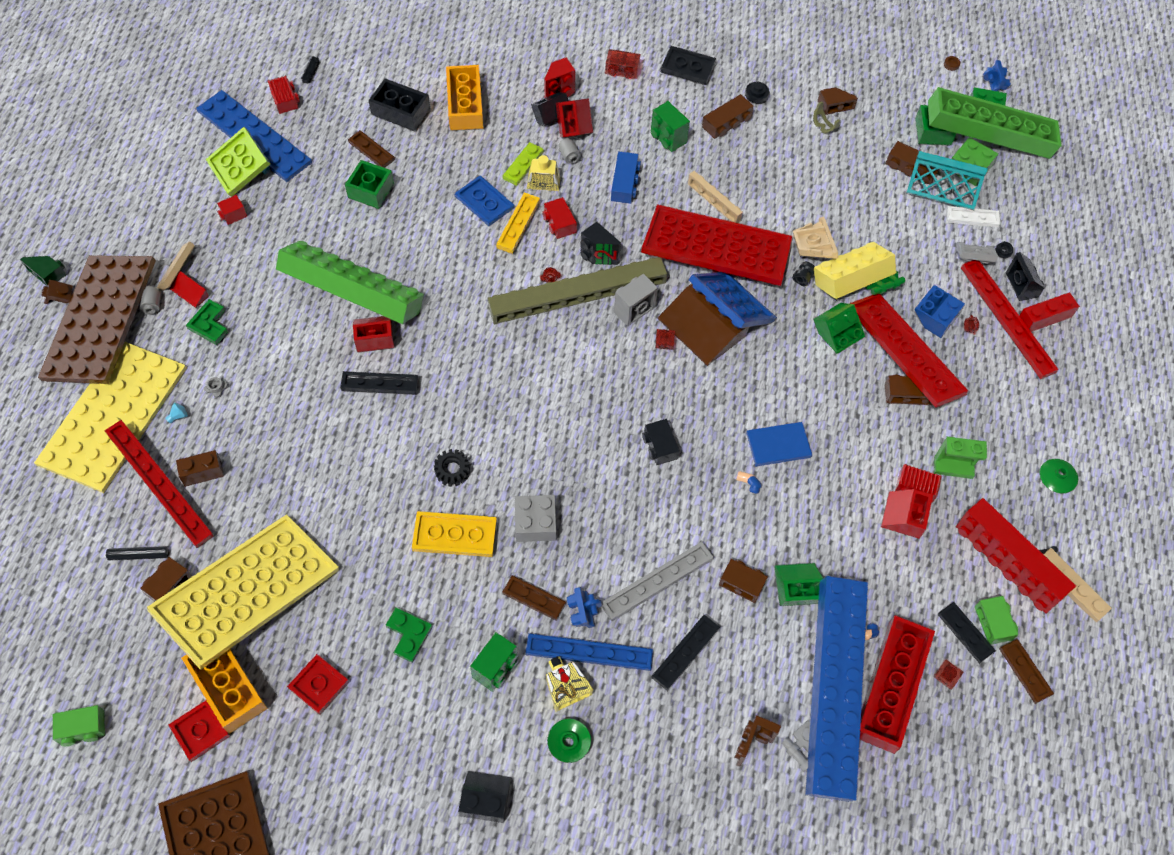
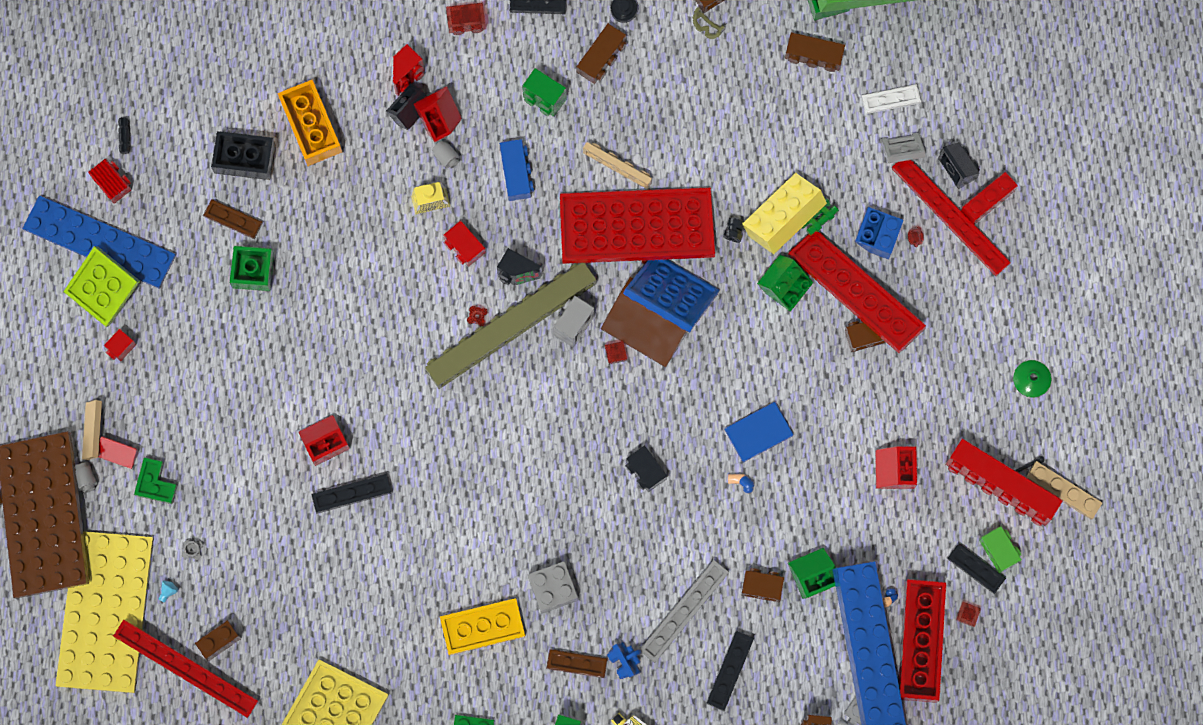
camera: 15 degrees left, 15 degrees up
(350, 281) = (279, 394): bright green brick -> none
(453, 478) = (455, 572): black tyre -> none
(484, 200) = (376, 245): blue tile -> none
(518, 223) = (422, 262): yellow plate -> none
(522, 163) = (401, 185): lime plate -> none
(589, 652) = (643, 698): blue tile -> none
(815, 240) = (735, 187): tan wing -> none
(918, 479) = (900, 433): red brick -> none
(947, 165) = (849, 54): teal fence -> none
(959, 456) = (933, 397): bright green panel -> none
(976, 154) = (876, 31): bright green brick -> none
(1004, 246) = (935, 129): black plate -> none
(1026, 671) = (1036, 588): reddish brown tile -> none

